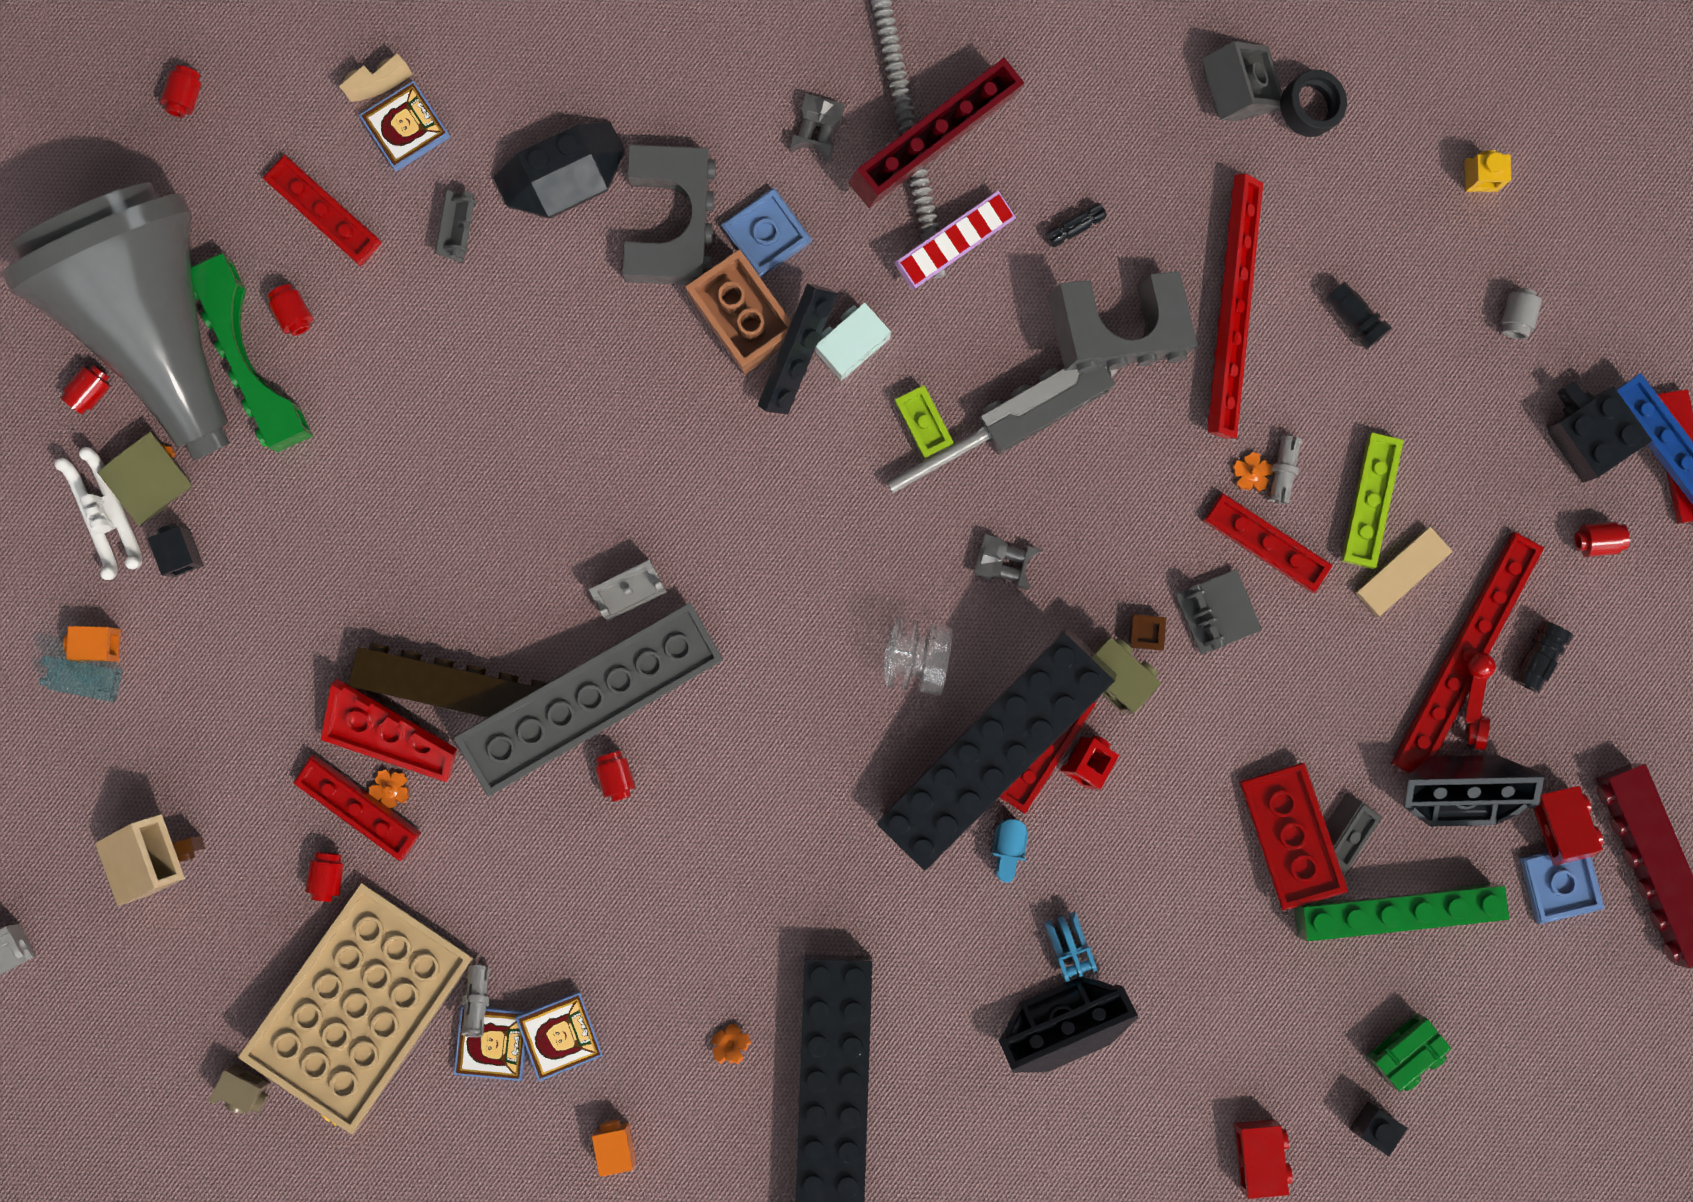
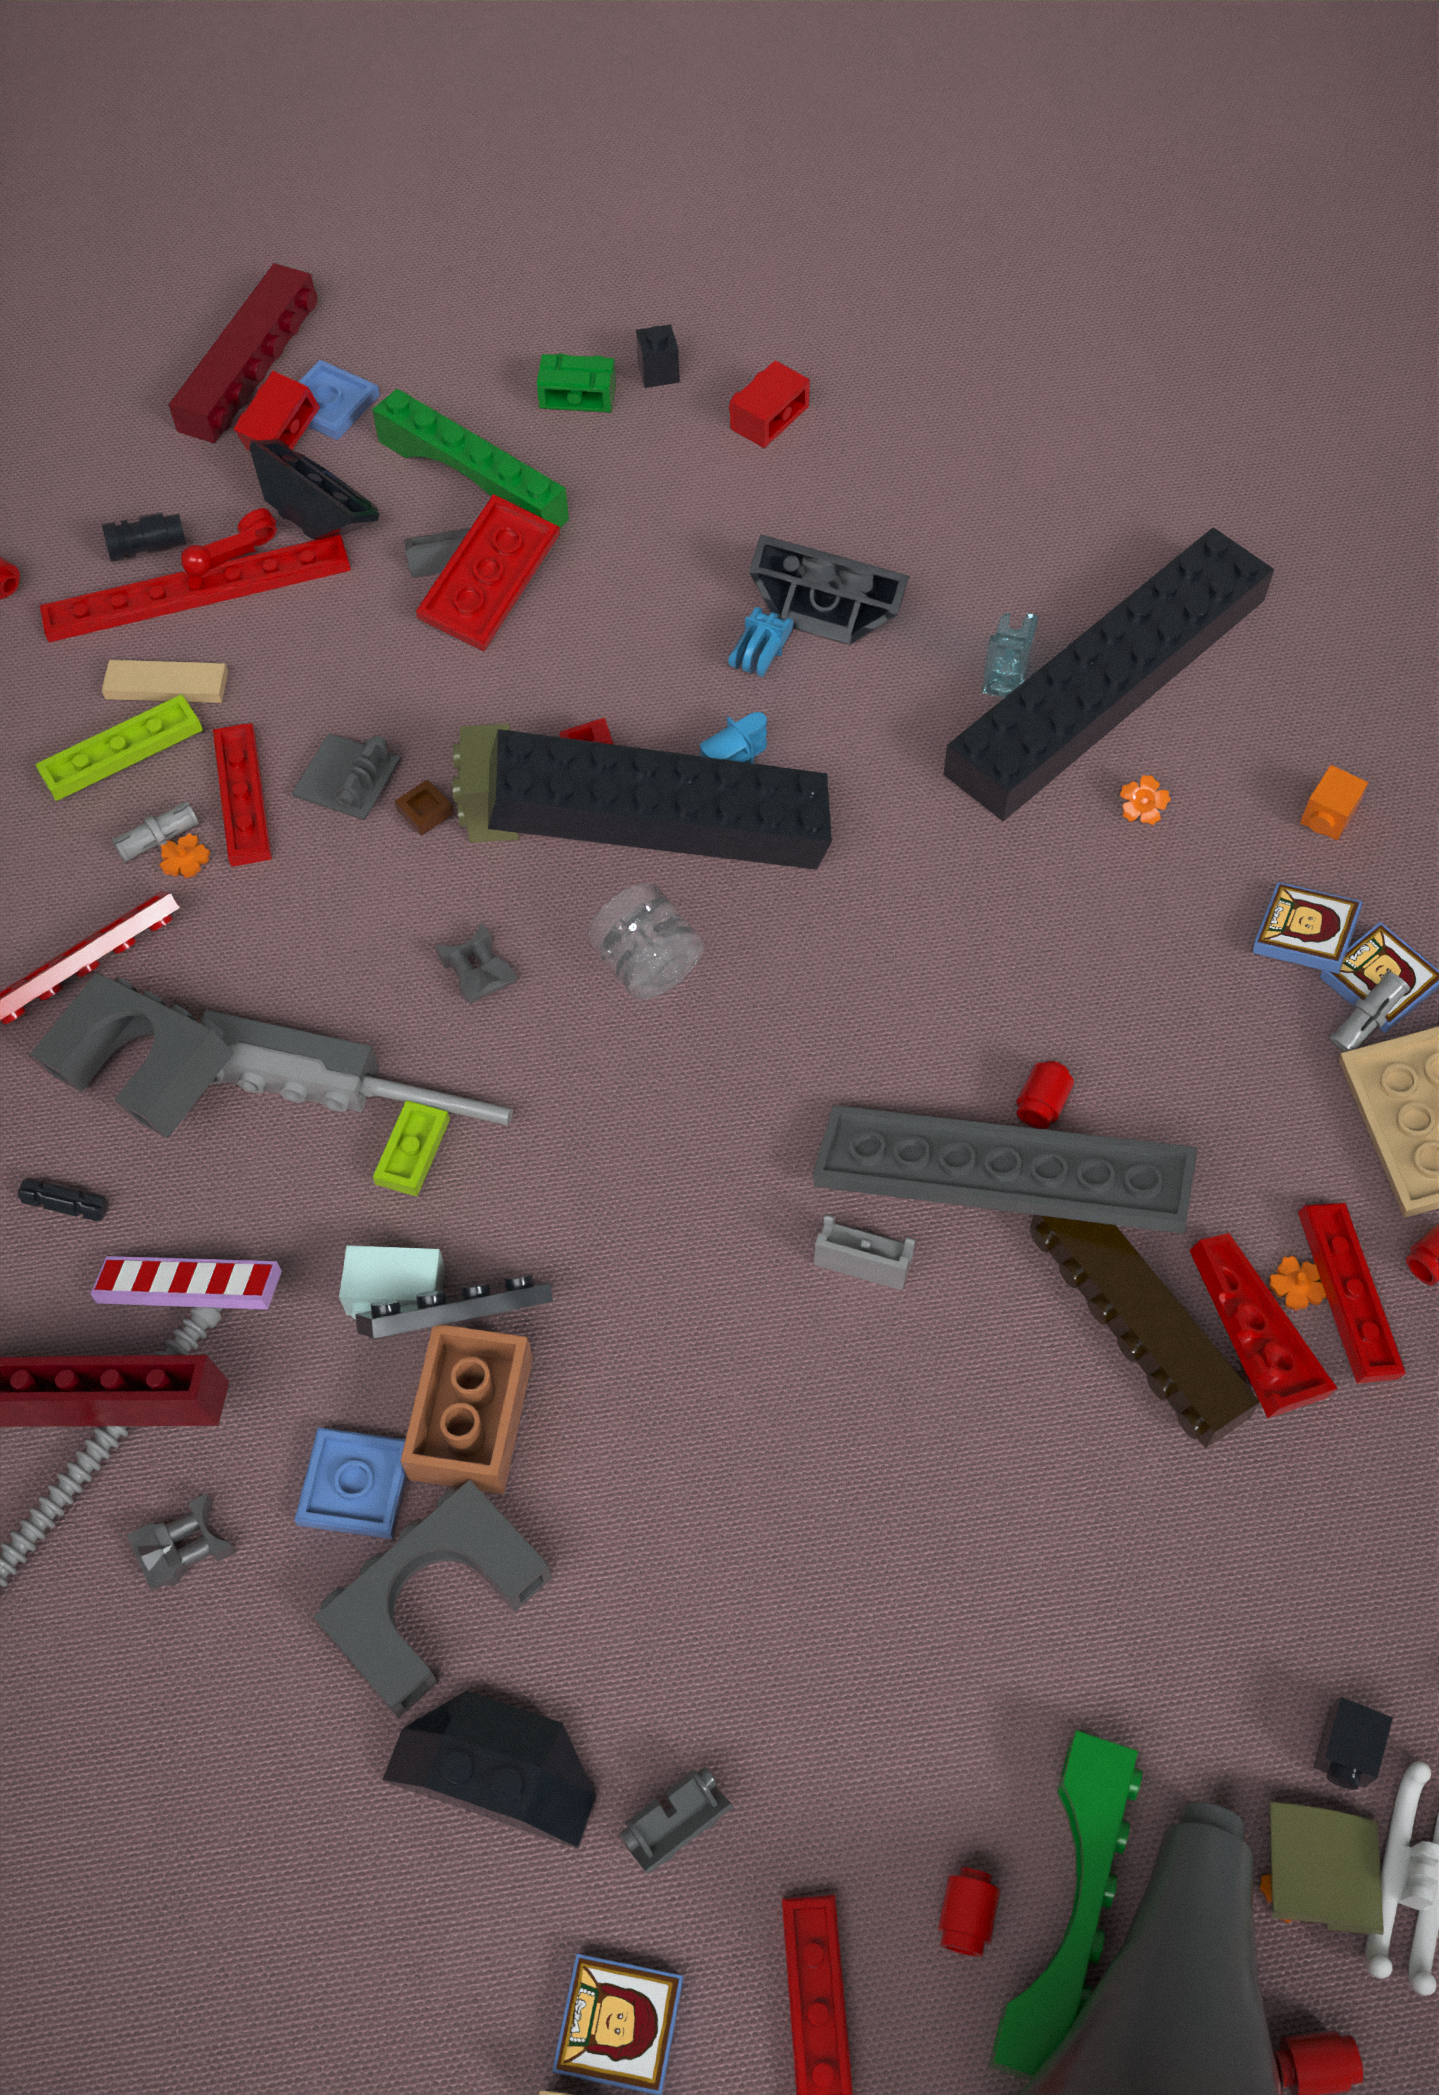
camera: 130 degrees left, 25 degrees down
(896, 1068) = (1009, 656): none -> clear light blue hinge

